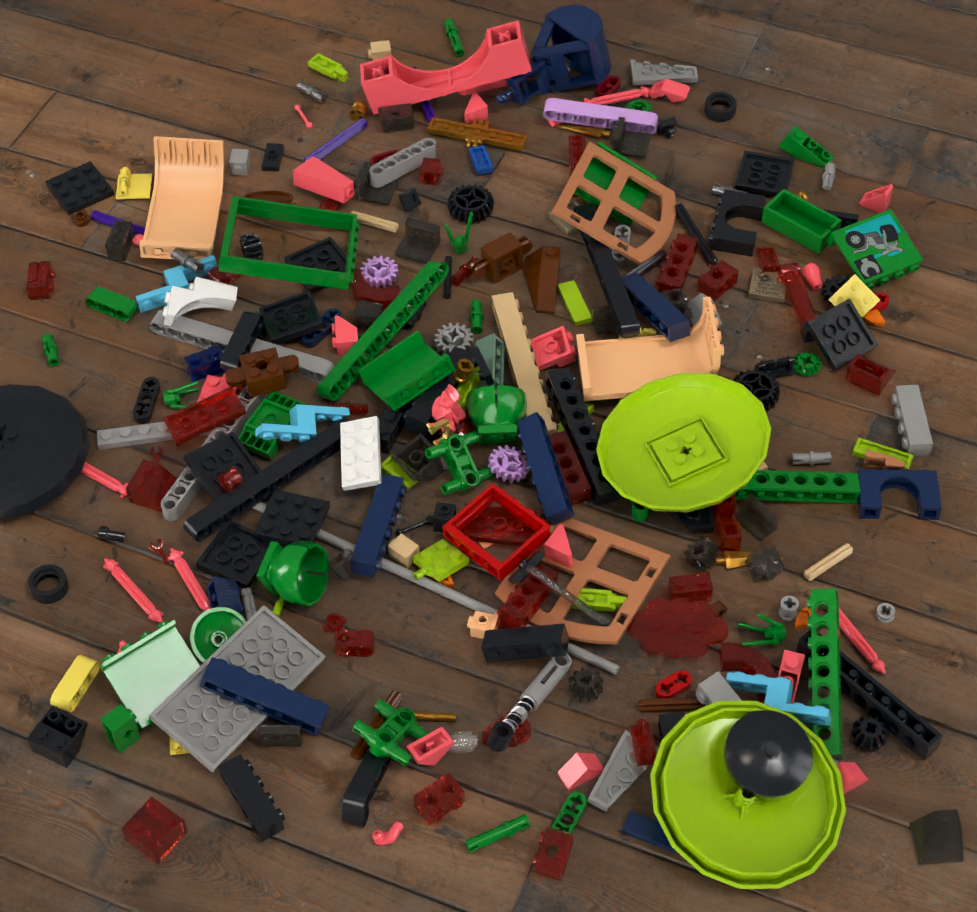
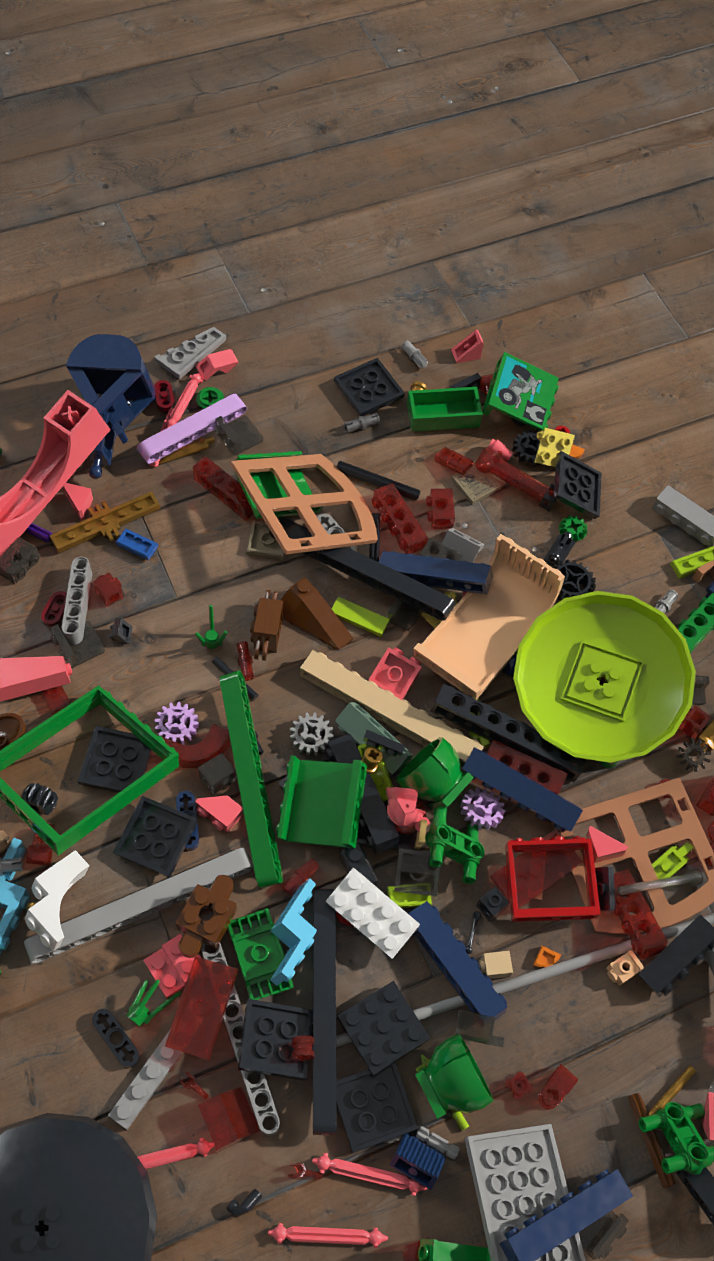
camera: 55 degrees left, 10 degrees up
(204, 363) = (131, 952): clear blue brick -> none
(213, 623) = (463, 1219): green dish -> none
(249, 328) = (149, 903): black beam -> none
(376, 222) = (113, 677): tan axle -> none
(419, 241) = (177, 666): clear smoke bracket -> none
(439, 561) = (531, 946): lime plate -> none
(468, 200) = (181, 584): black gear -> none
(476, 317) = (301, 696): green pin -> none
(668, 127) = (254, 399): black tile -> none
(724, 99) = (270, 340): black tyre -> none
(733, 205) = (401, 465): black arch -> none
(803, 147) = (369, 342): green slope -> none
(869, 374) = (625, 501): clear red slope -> none

